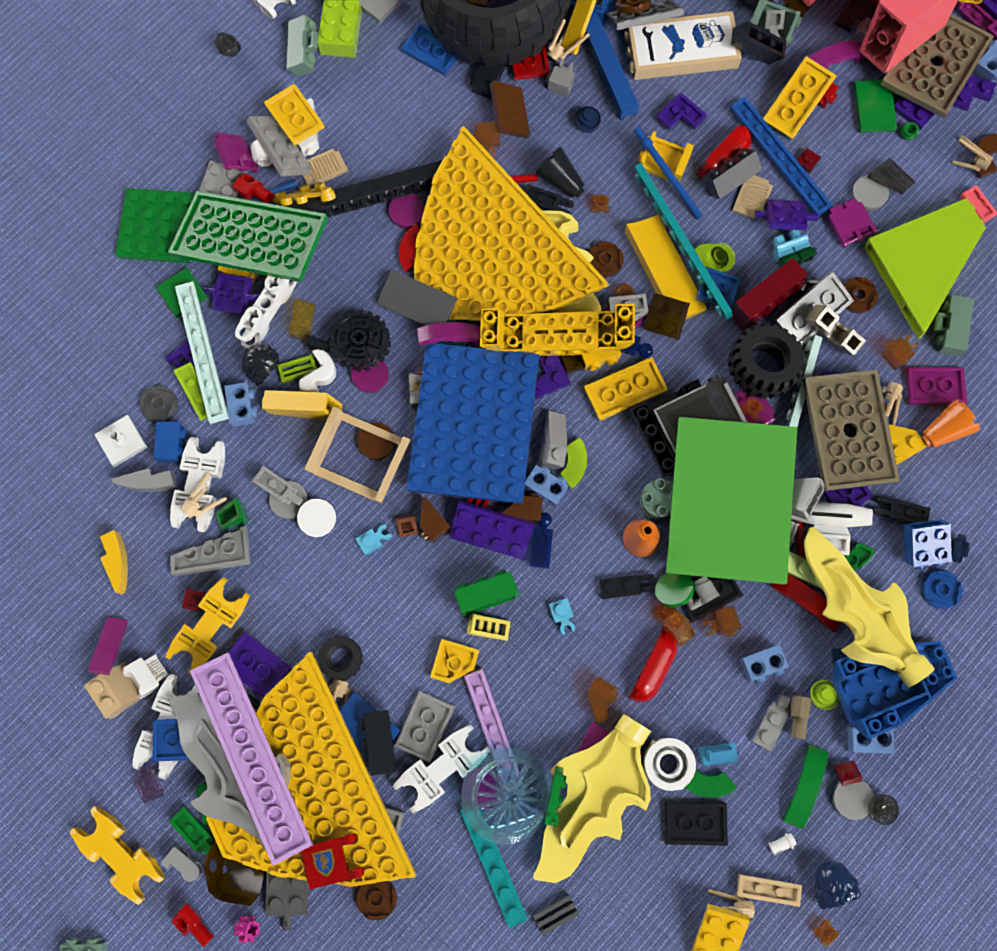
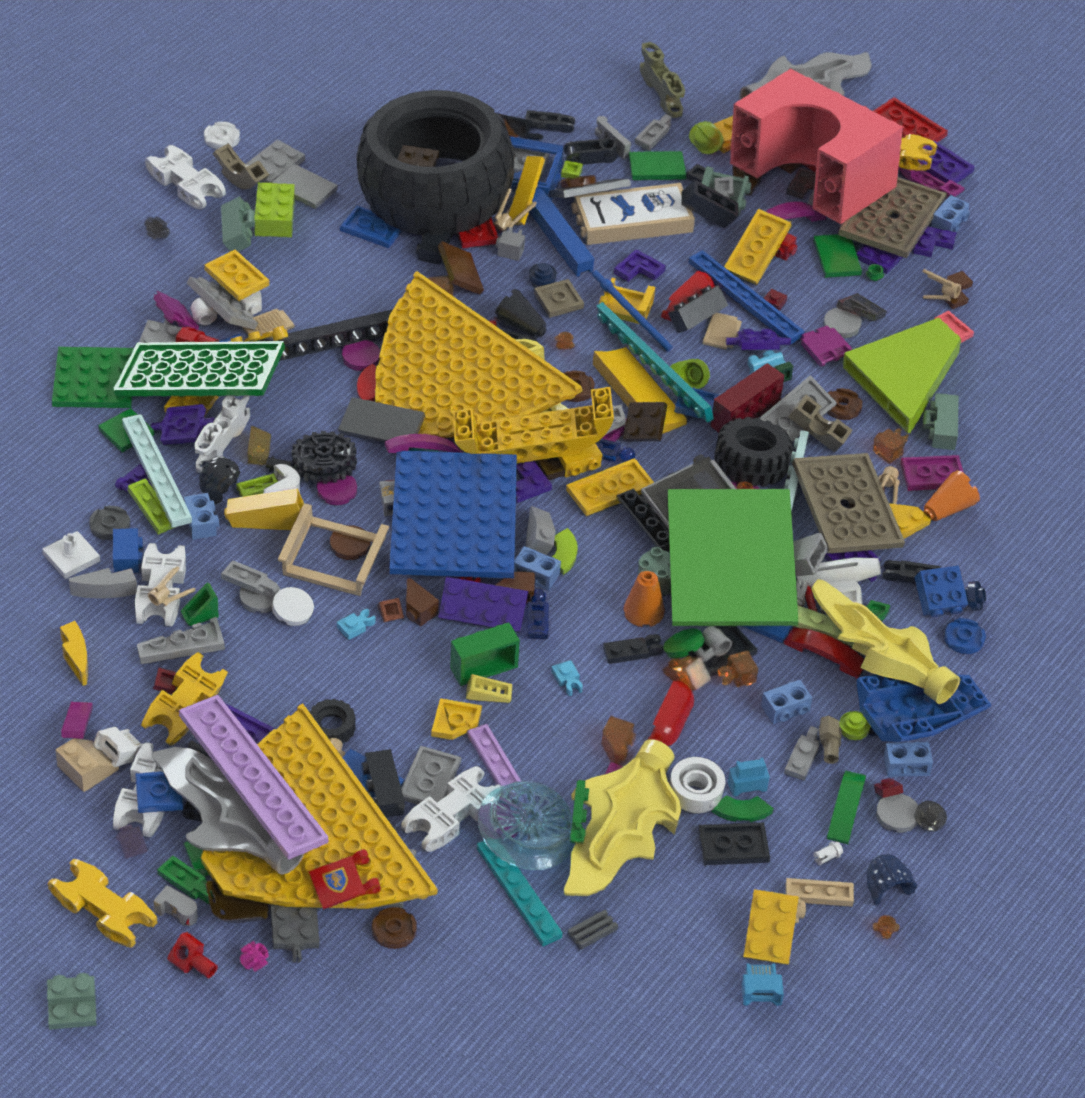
camera: 10 degrees left, 30 degrees down
(600, 150) = (558, 298): none -> dark tan plate

